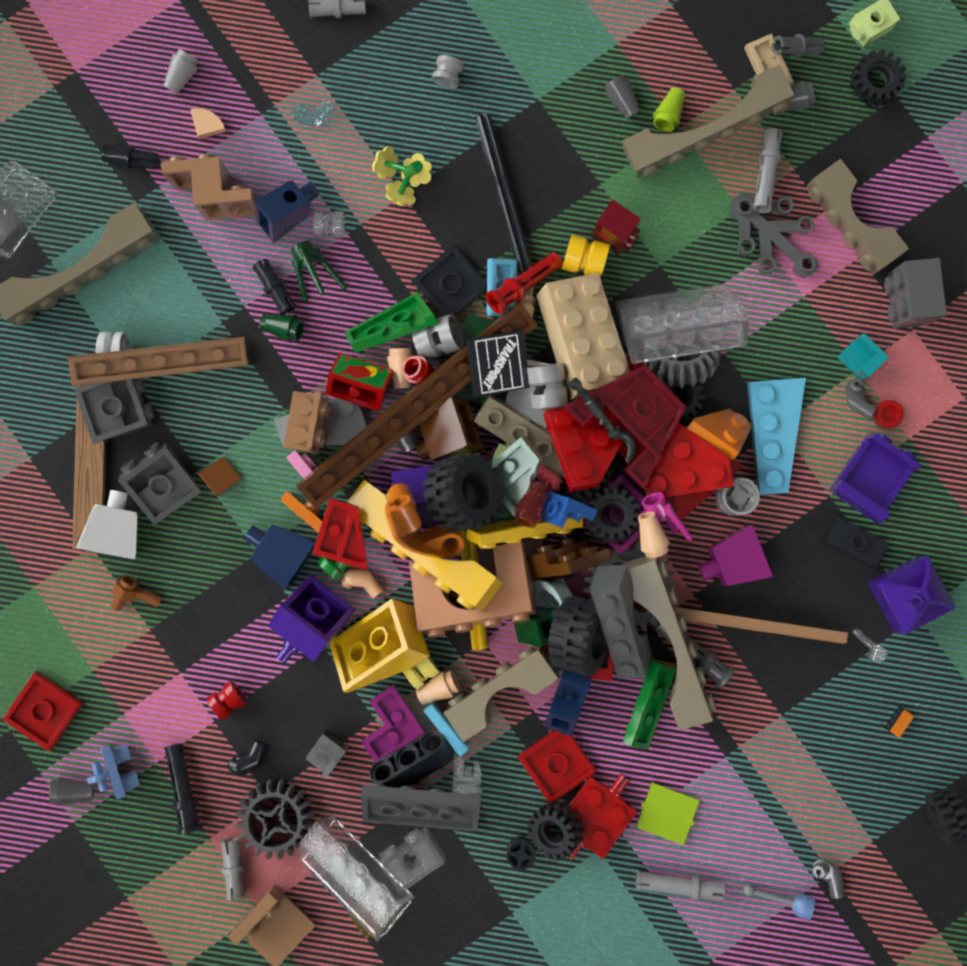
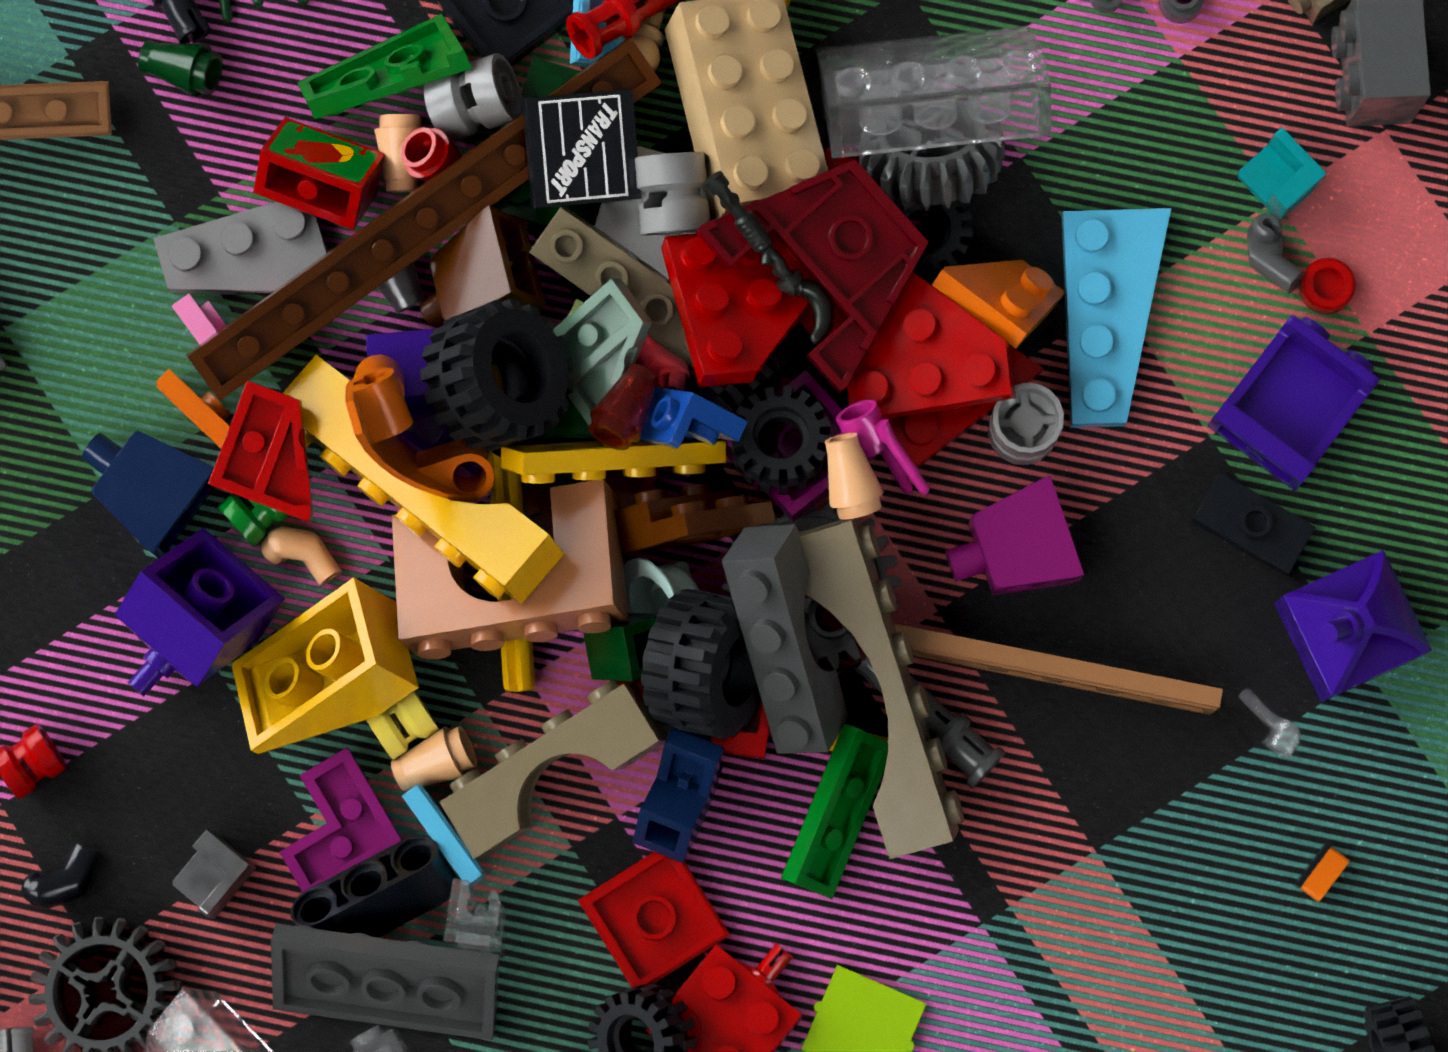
camera: 10 degrees right, 5 degrees down
(220, 476) = (45, 340): dark orange slope -> none
(307, 422) = (215, 241): medium nougat bracket -> none

